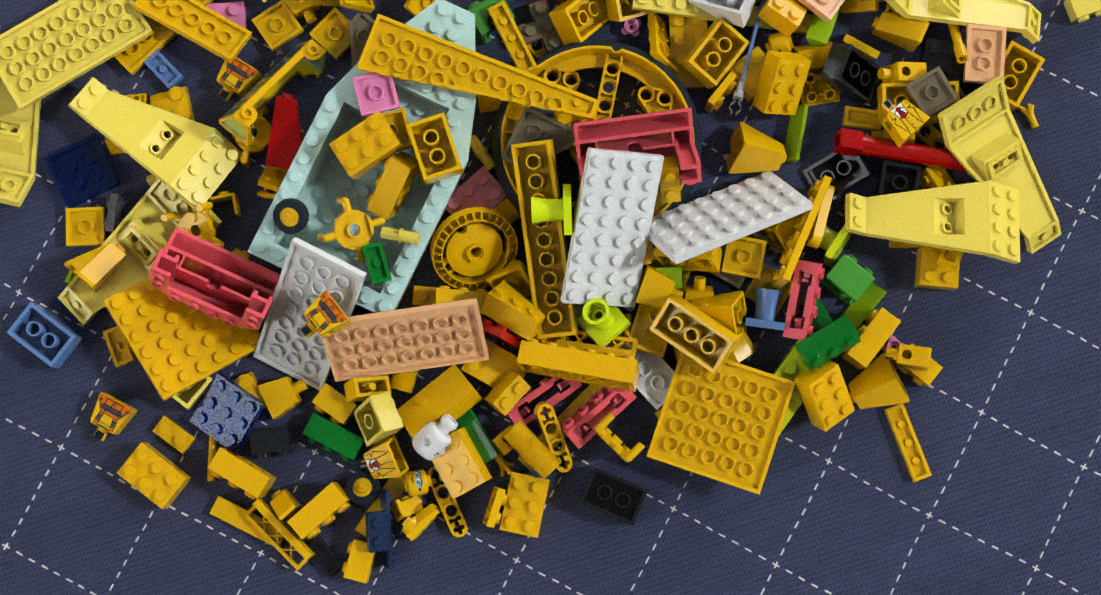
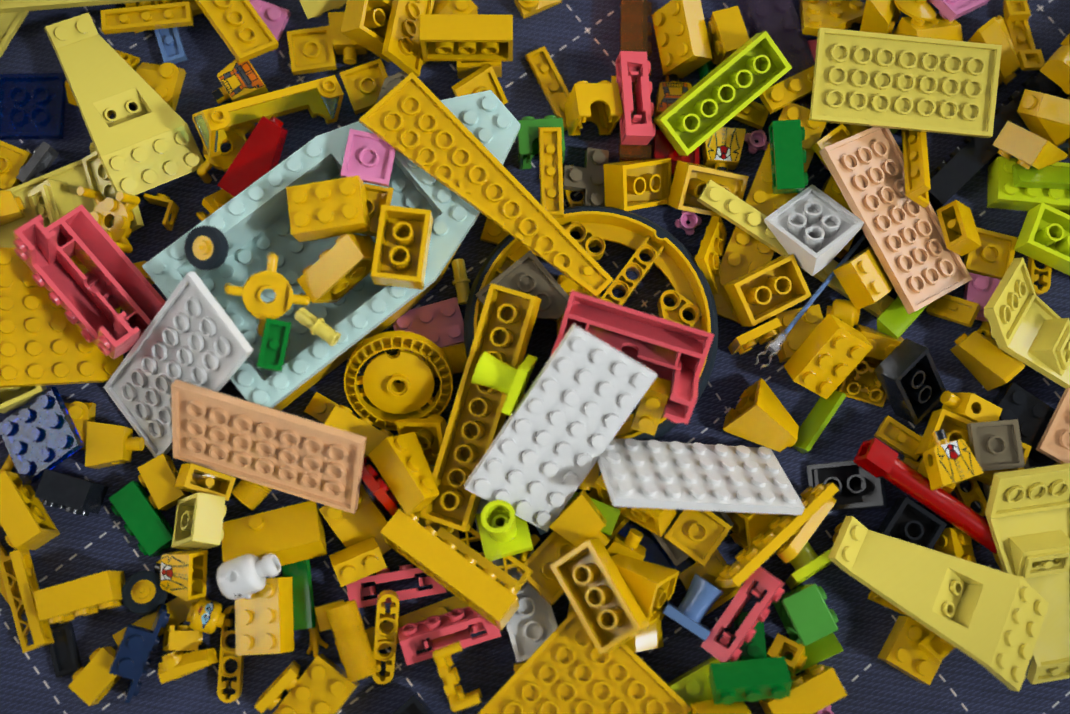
camera: 15 degrees right, 5 degrees down
(138, 59) = (146, 17): none -> yellow plate
(284, 504) = (48, 570): yellow slope -> none
(325, 317) = (182, 377): torso -> none
(845, 308) = (782, 646): none -> yellow brick
(867, 50) = (941, 364): yellow plate -> none
(959, 47) = (1048, 409): yellow piece -> none

